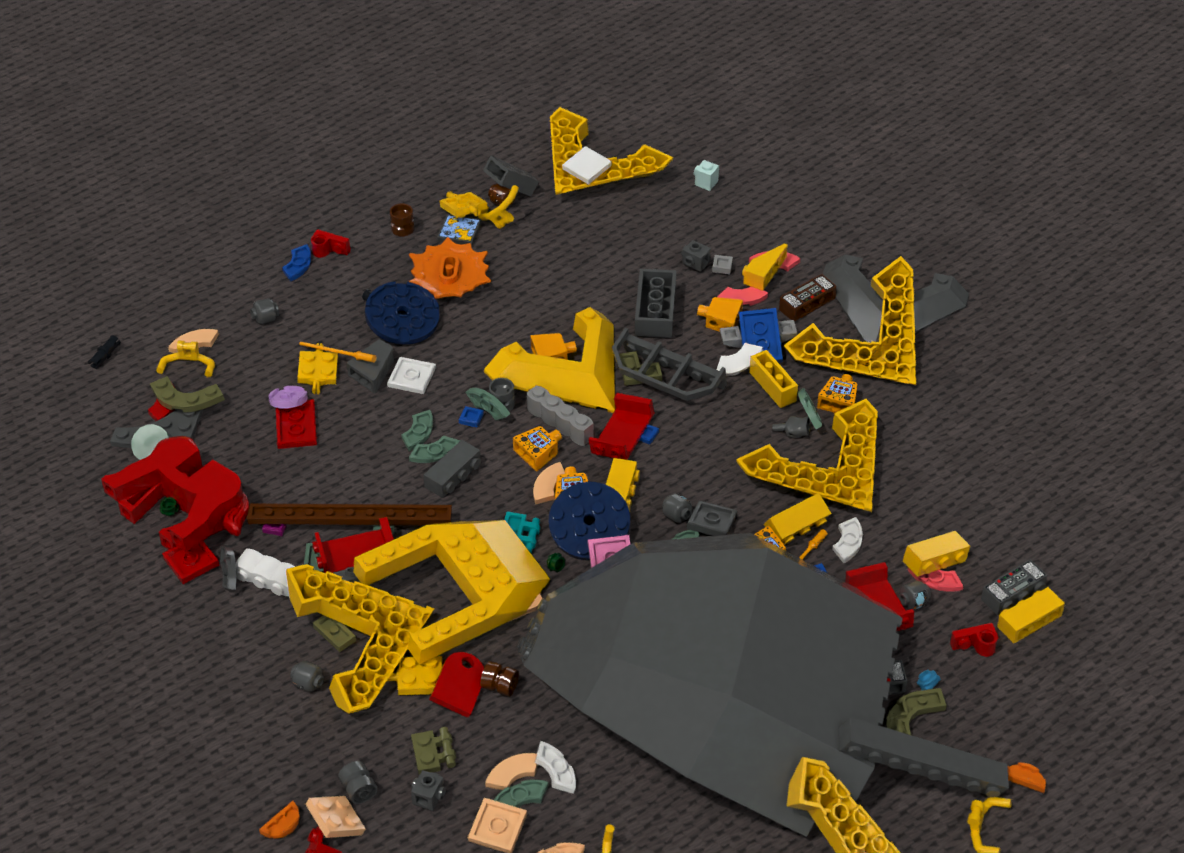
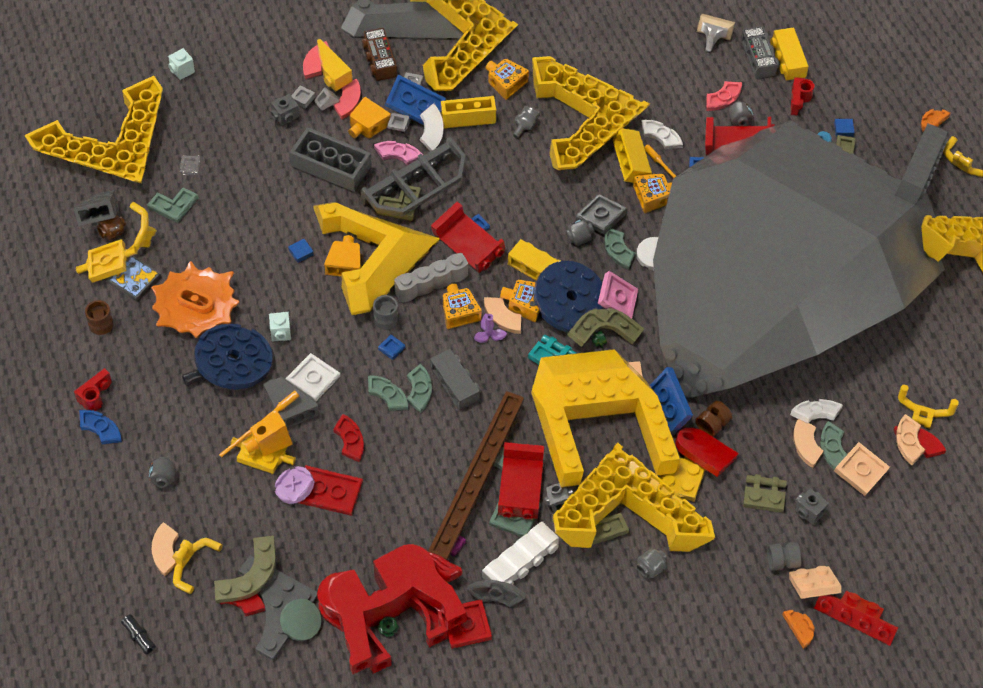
camera: 70 degrees left, 10 degrees up
(322, 356) = (269, 435): none -> light orange torso
(359, 421) = (351, 438): none -> red tile
(450, 332) = (280, 326): none -> light aqua brick
(488, 402) = (388, 325): sand green tile -> none
(499, 634) = (672, 400): none -> blue plate
(523, 476) = (487, 325): none -> medium lavender plant
(546, 322) = (300, 250): none -> blue tile
(549, 229) = (175, 208): none -> sand green tile
(567, 545) = (606, 319): none -> olive plate
(586, 165) = (124, 142): white tile -> none
(599, 220) = (190, 165): none -> clear plate
(701, 348) = (393, 150): none -> bright pink tile
(731, 280) = (326, 99): none -> light grey slope
(809, 408) = (502, 100): sand green tile -> none
(936, 553) = (710, 83): yellow brick -> none
(960, 695) = (844, 127): none -> blue tile
(1019, 538) = (714, 29): none -> piece

